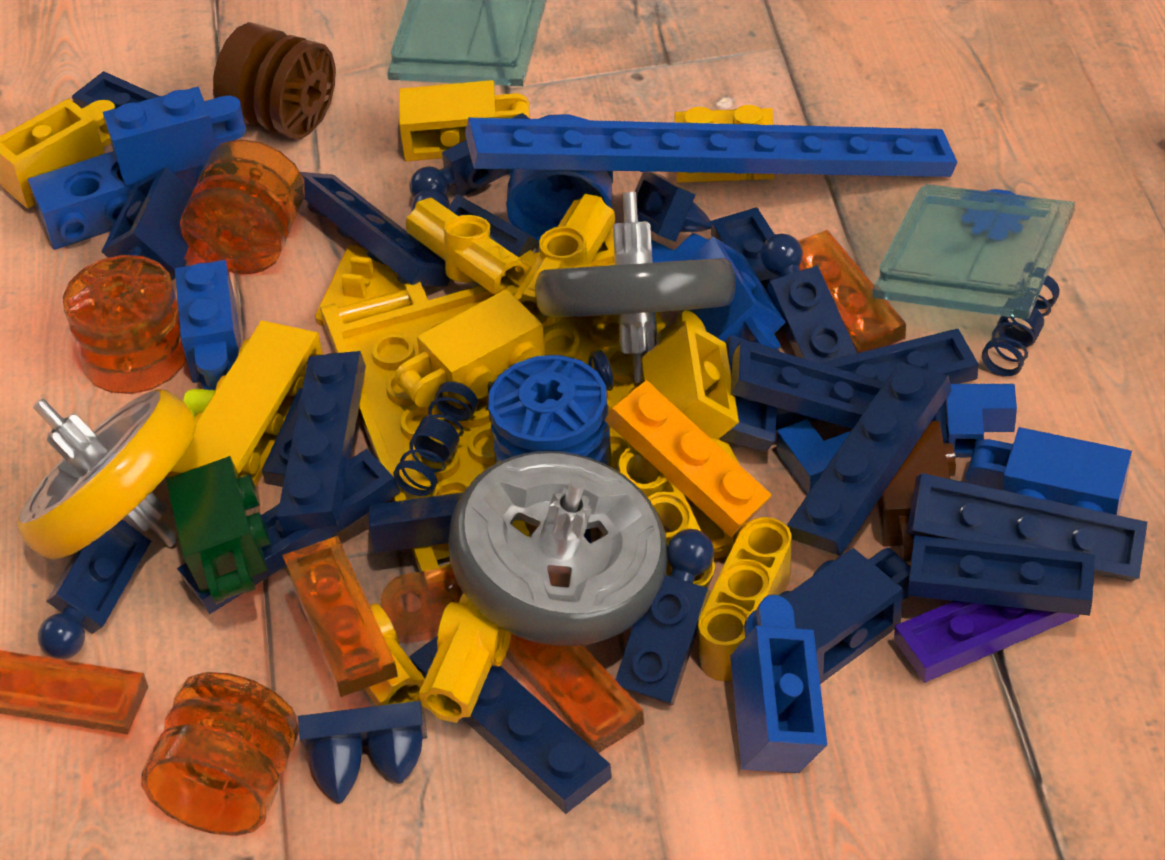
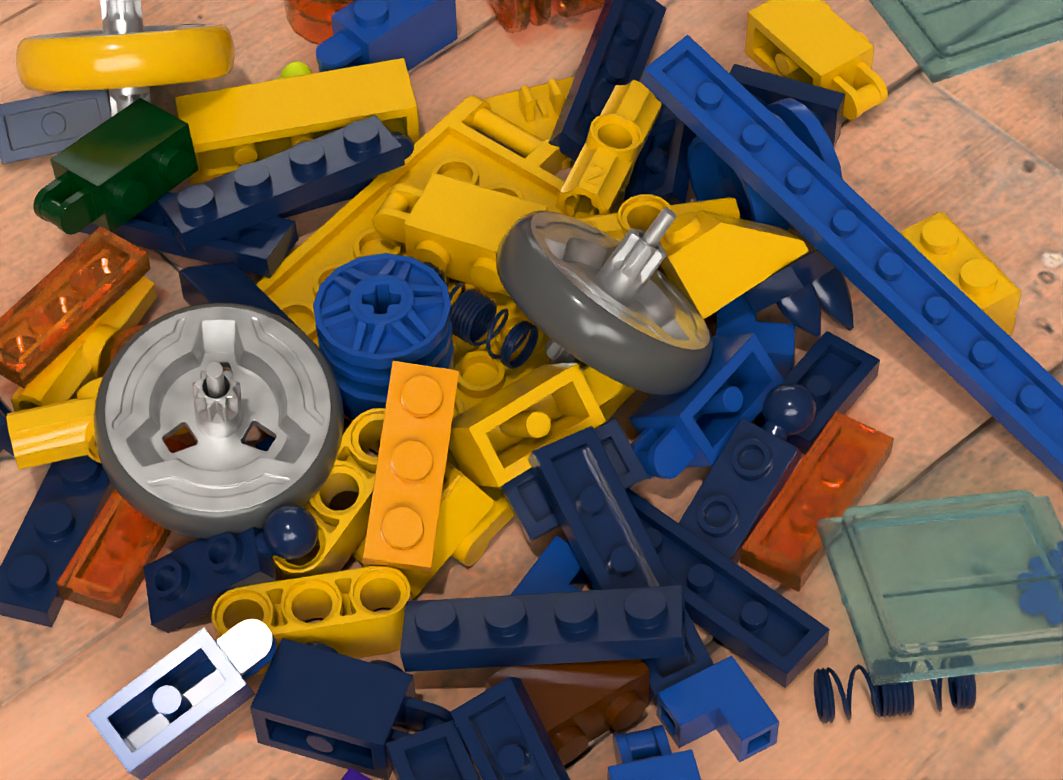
camera: 55 degrees right, 5 degrees up
(439, 430) = (333, 256): dark blue piece -> none
(652, 207) = (723, 256): none -> yellow slope

